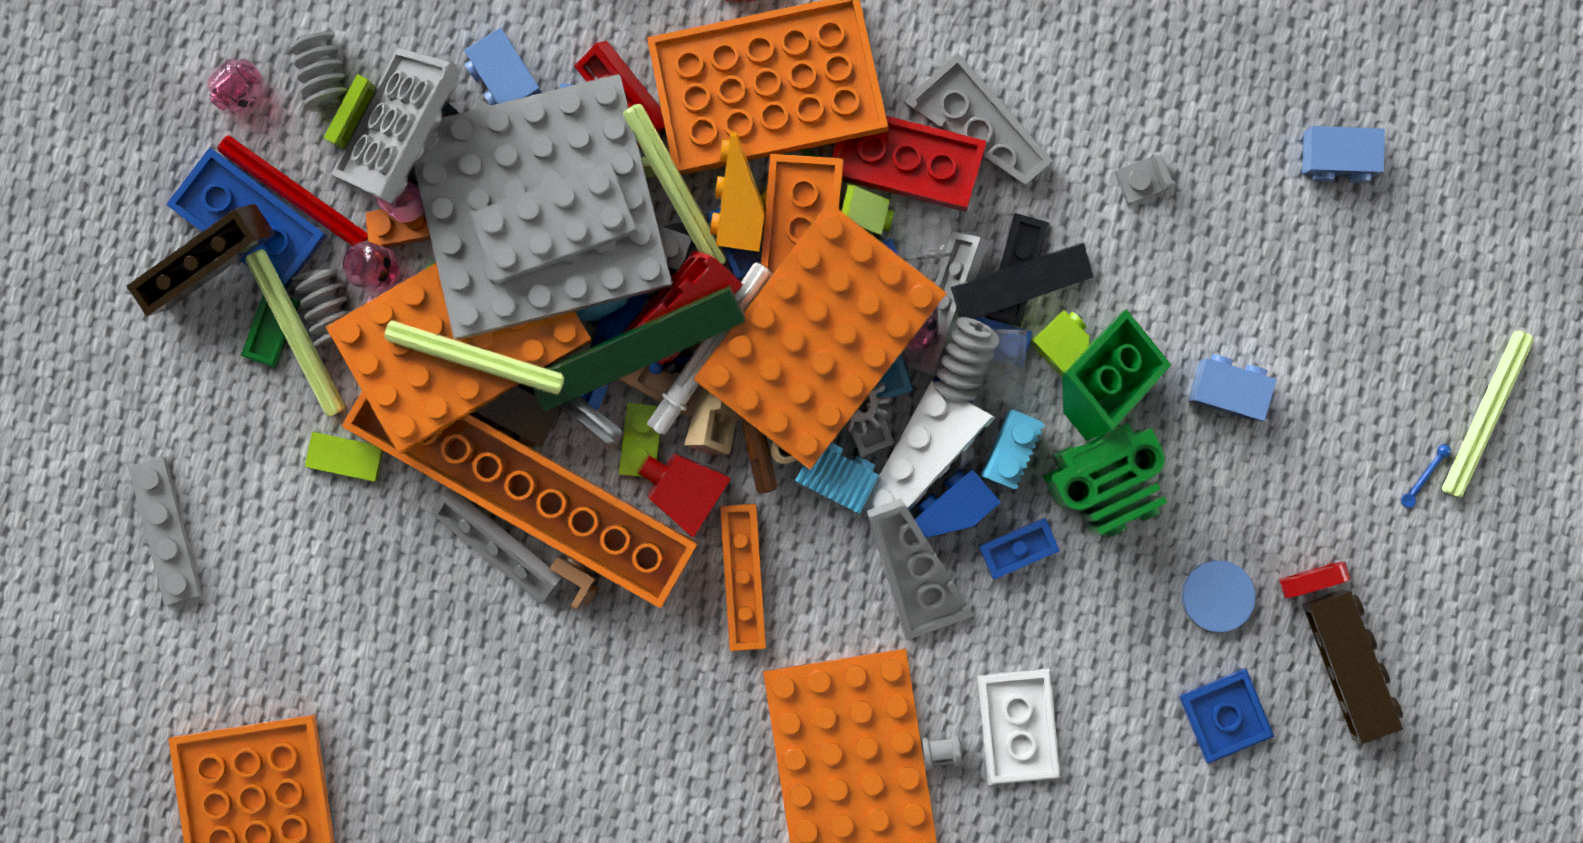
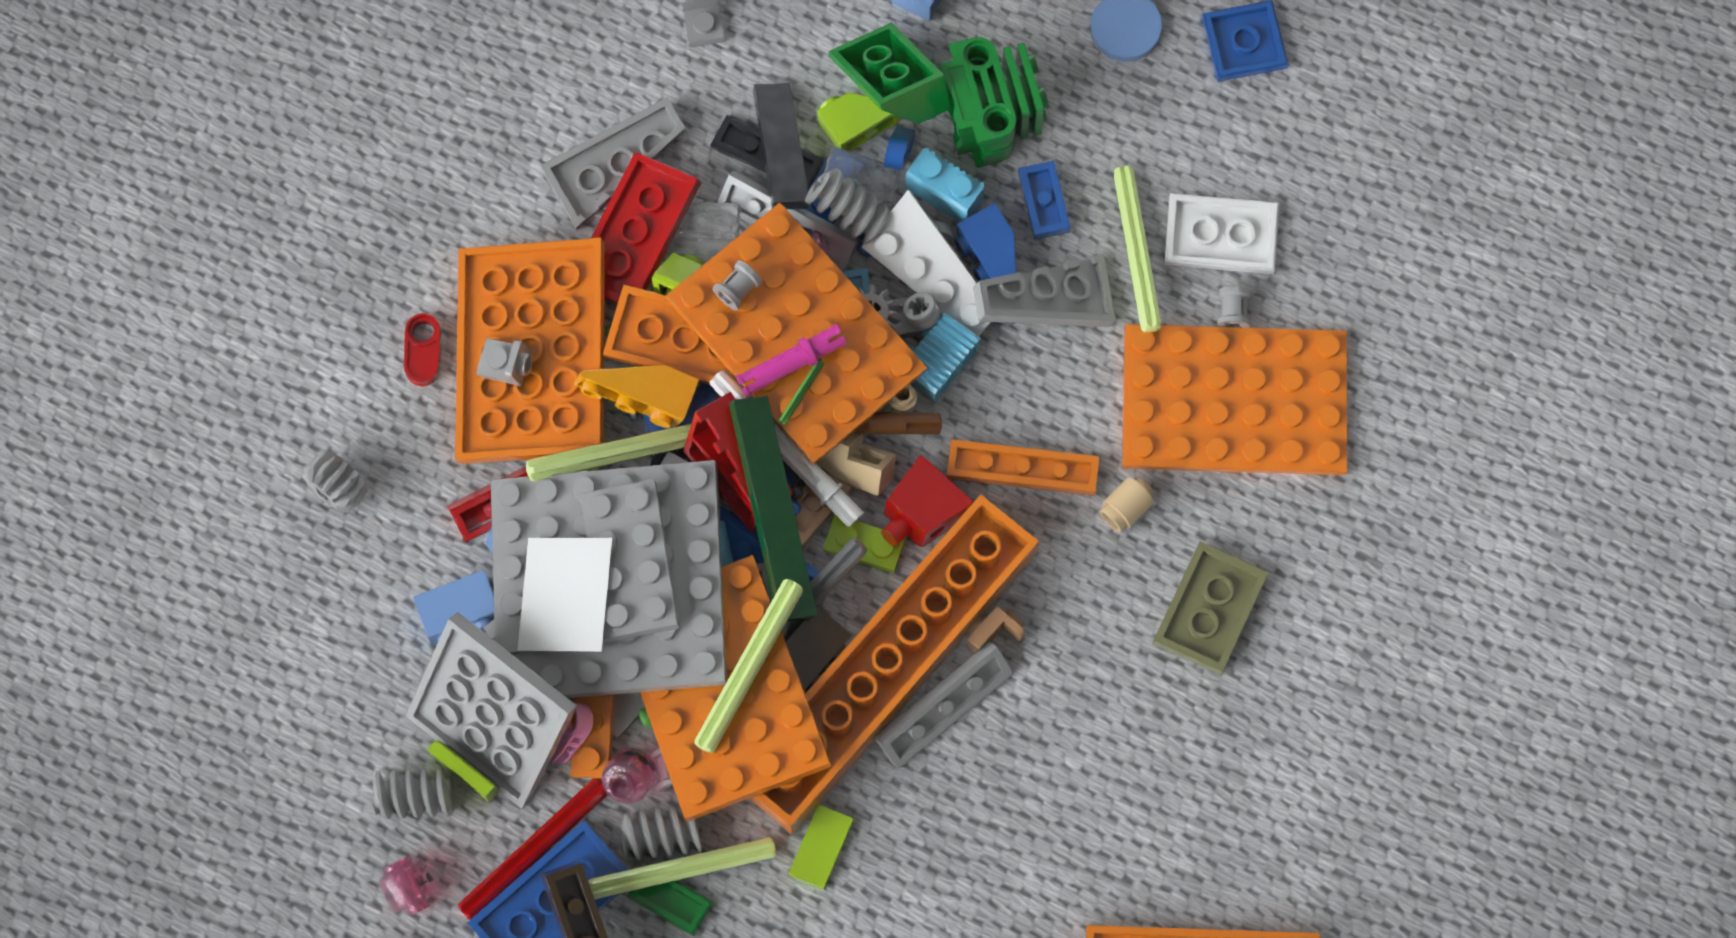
camera: 80 degrees left, 15 degrees down
(508, 168) = (565, 594): none -> white sticker
(637, 779) = (1210, 608): none -> olive plate
(724, 683) = (1127, 503): none -> tan brick
(746, 62) = (505, 361): none -> light grey bracket
(756, 353) = (801, 392): none -> bright green piece
(782, 337) = (791, 360): none -> dark pink pin
(845, 269) = (737, 285): none -> light grey bush
(866, 458) = (916, 303): none -> light grey bush
(984, 648) = (1137, 249): none -> yellowish green axle
(1039, 398) = (899, 148): none -> blue beam

